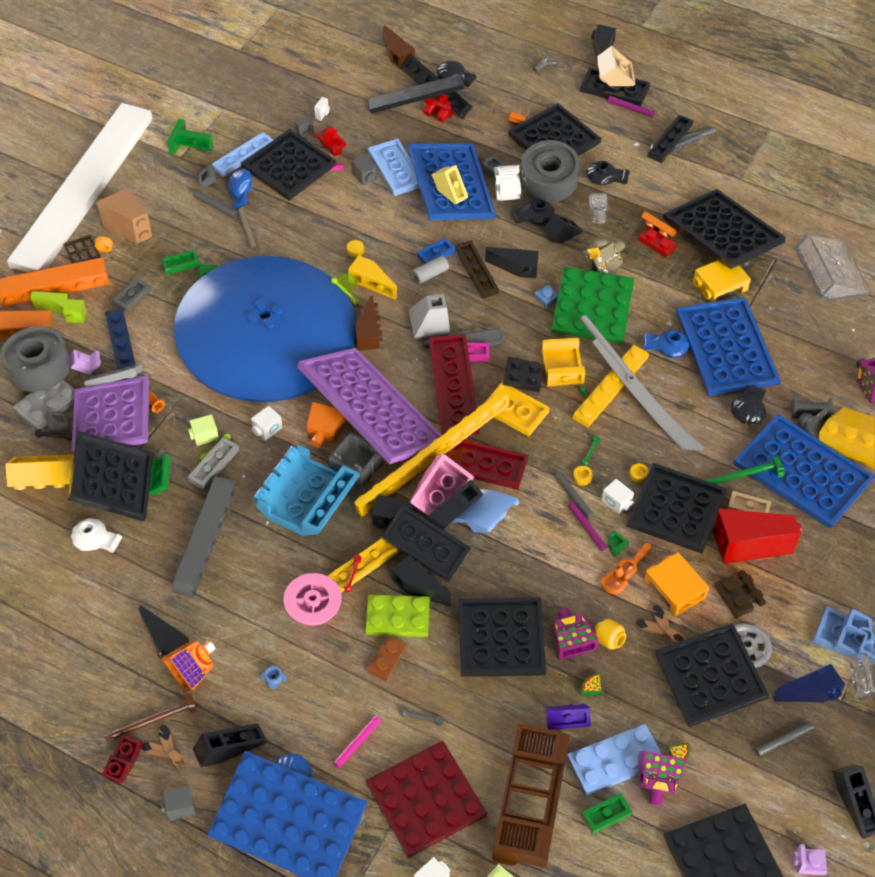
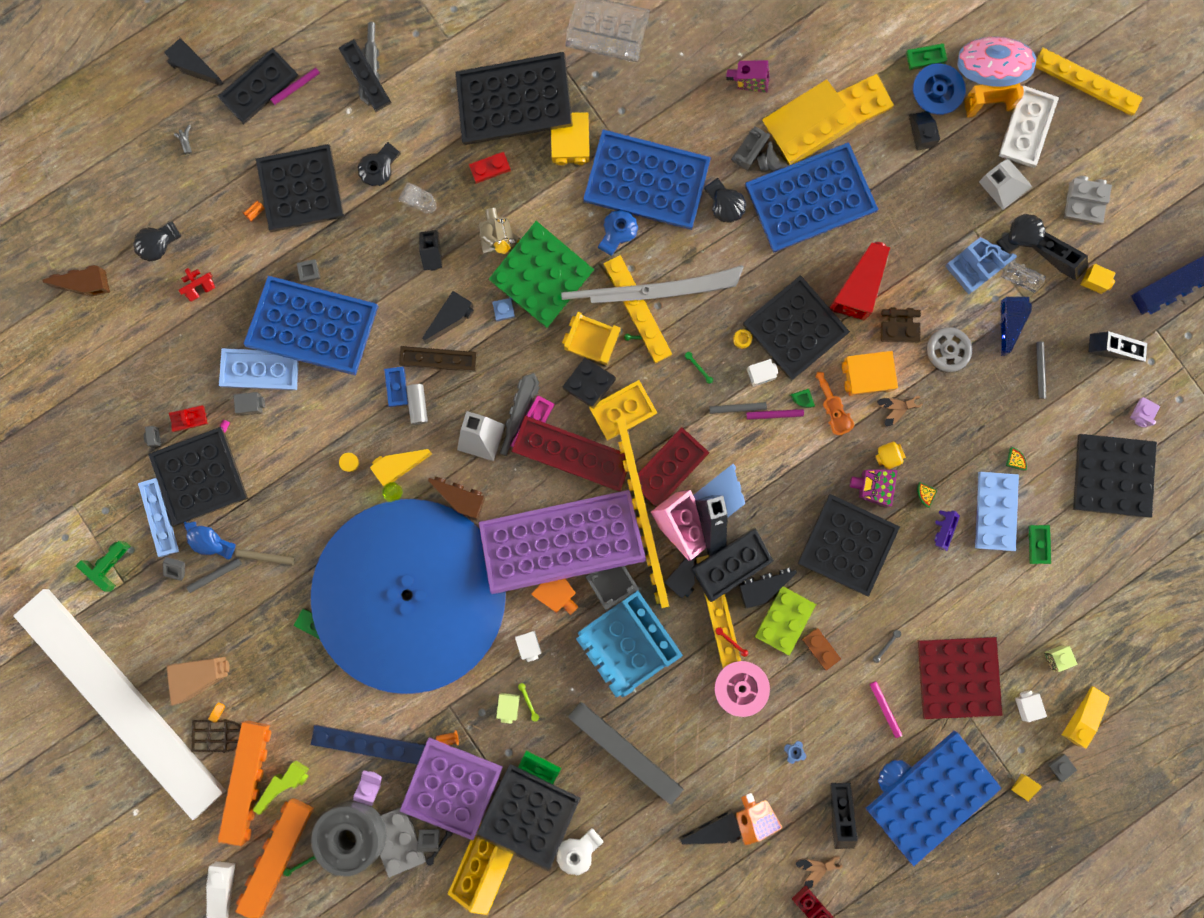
camera: 65 degrees left, 30 degrees up
(117, 375) = (405, 769): light grey plate -> none
(131, 295) = (300, 709): dark grey plate -> none
(156, 717) = (789, 833): reddish brown piece -> none
(178, 803) = (876, 879): dark grey brick -> none
(180, 262) = (280, 644): green plate -> none
(213, 463) = (549, 713): light grey plate -> none
(321, 109) = (134, 405): white plate -> none
(334, 280) = (416, 494): lime hinge -> none
(416, 93) = (170, 298): black tile -> none
(424, 75) = (160, 269): black tile -> none
(450, 184) = (326, 332): light yellow slope -> none
(507, 182) = (346, 272): white brick -> none
(525, 837) = (969, 569): reddish brown piece -> none
(536, 212) = (394, 261): black animal -> none
(550, 170) = (352, 204): dark grey piece -> none
(582, 475) = (721, 389): yellow tile -> none
(615, 68) = (240, 73): tan slope -> none
(652, 221) = (478, 152): orange plate -> none
(659, 774) = (1032, 486): magenta torso -> none
(711, 675) = (965, 395): black plate -> none
(748, 503) = (824, 266): tan plate -> none
(777, 464) = (801, 221): green piece -> none

